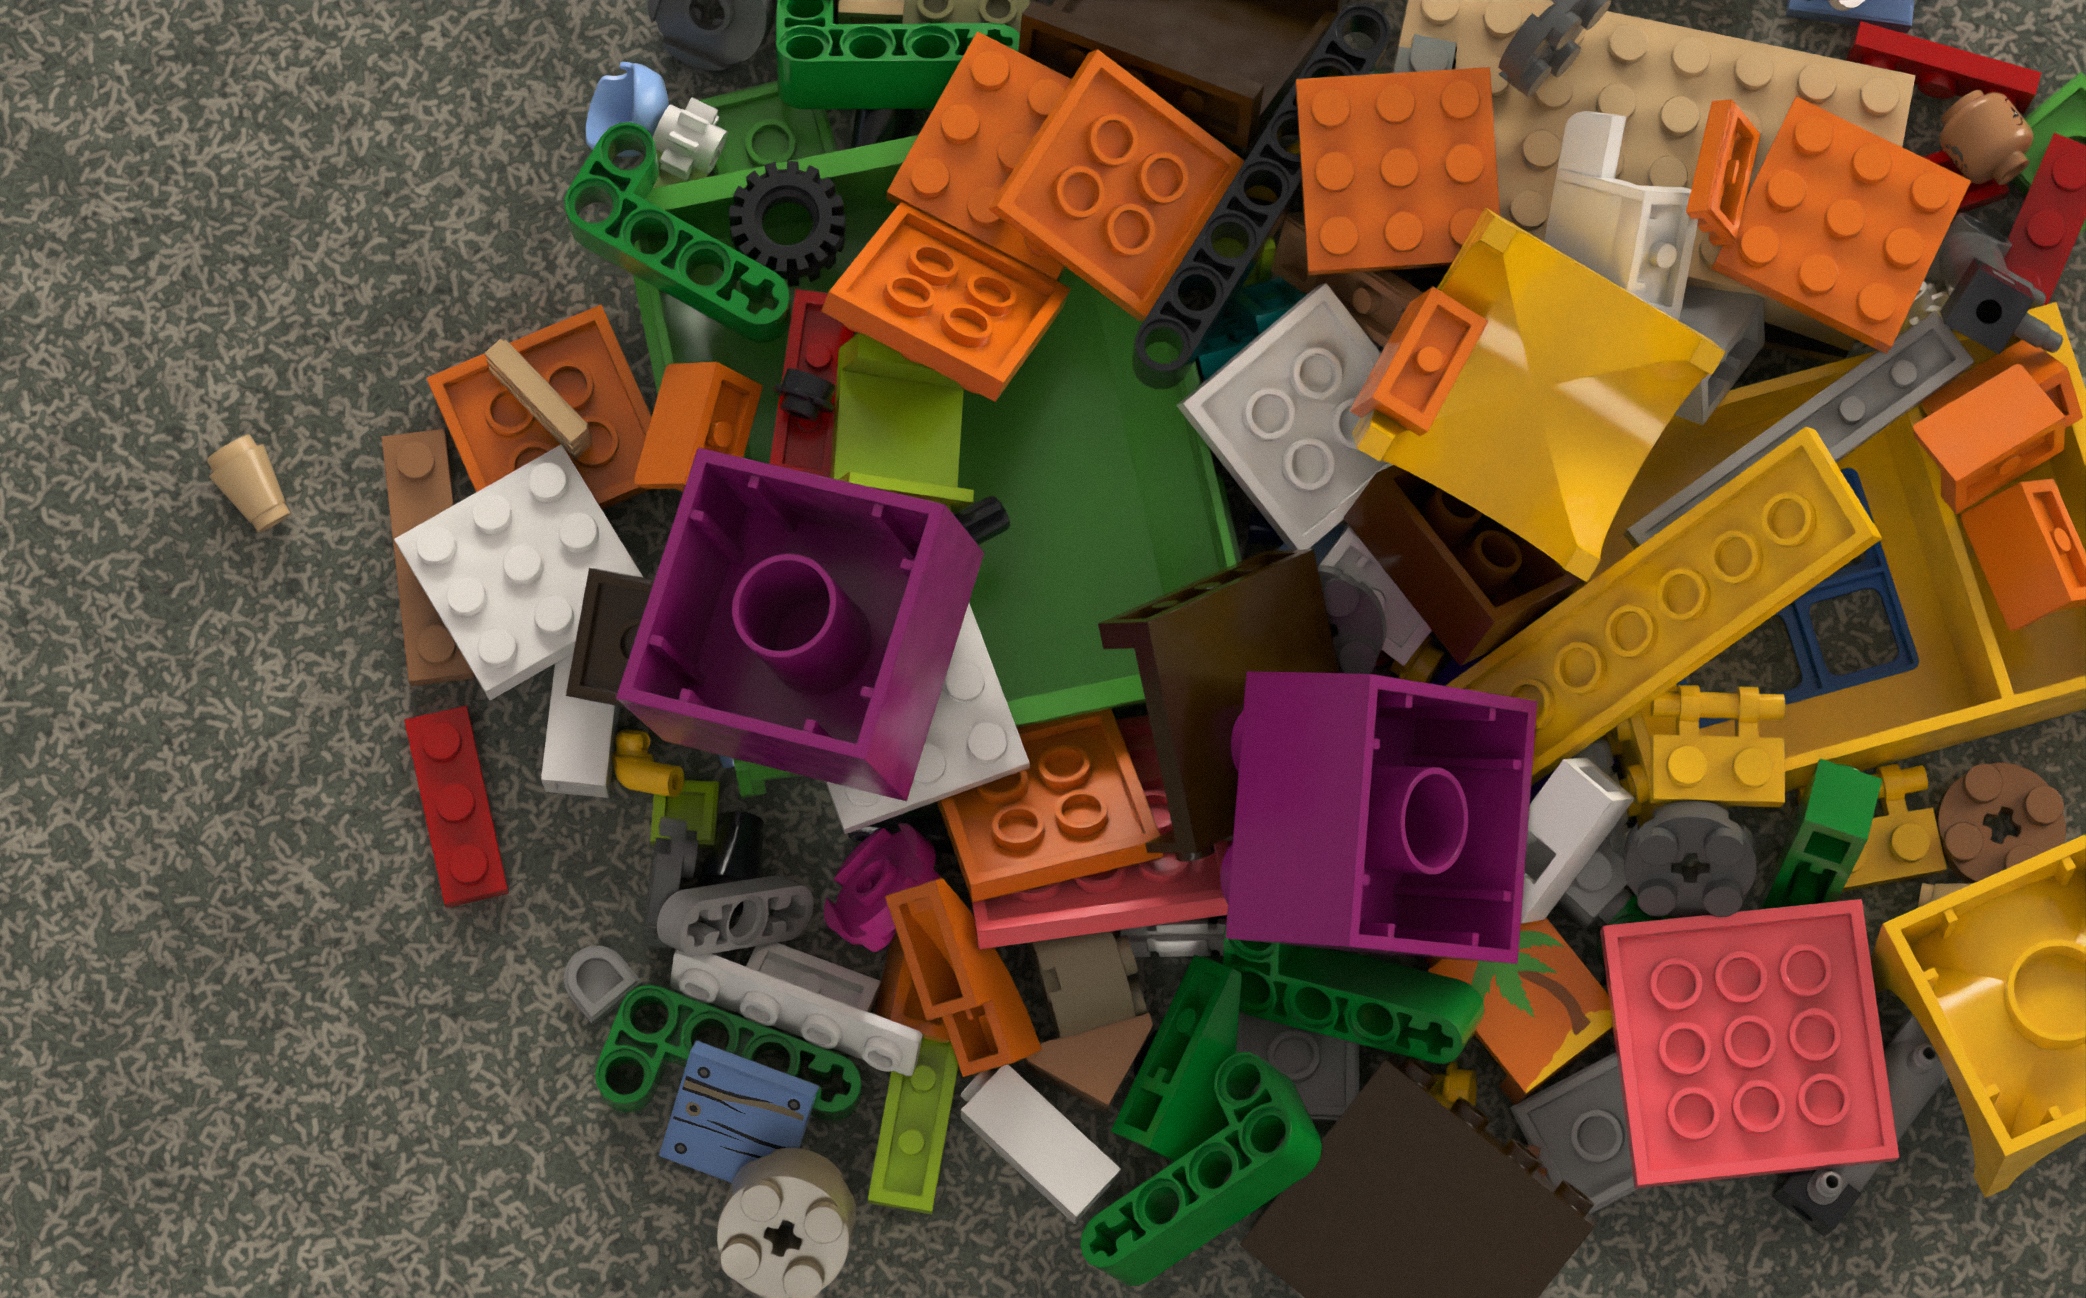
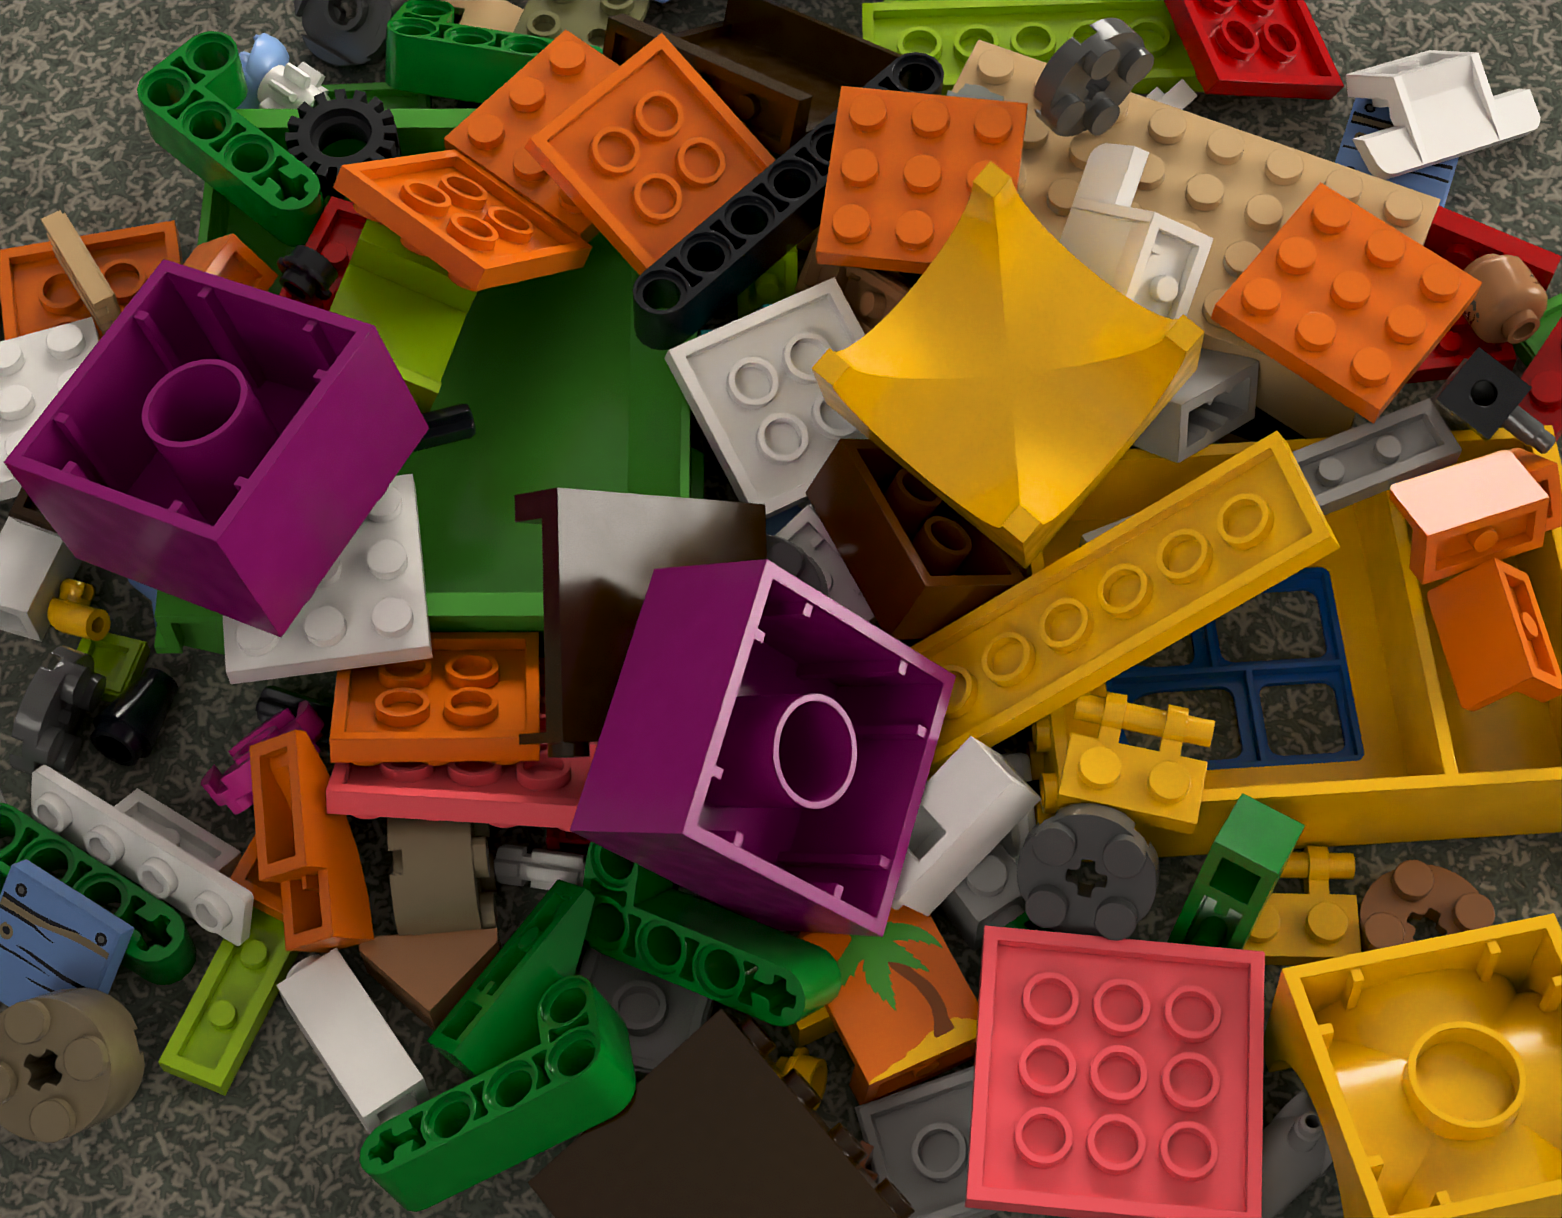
camera: 15 degrees right, 15 degrees down
(680, 929) = (89, 732): light grey beam -> none
(1421, 361) = (901, 313): orange panel -> none
(1723, 172) = (1236, 225): orange tile -> none

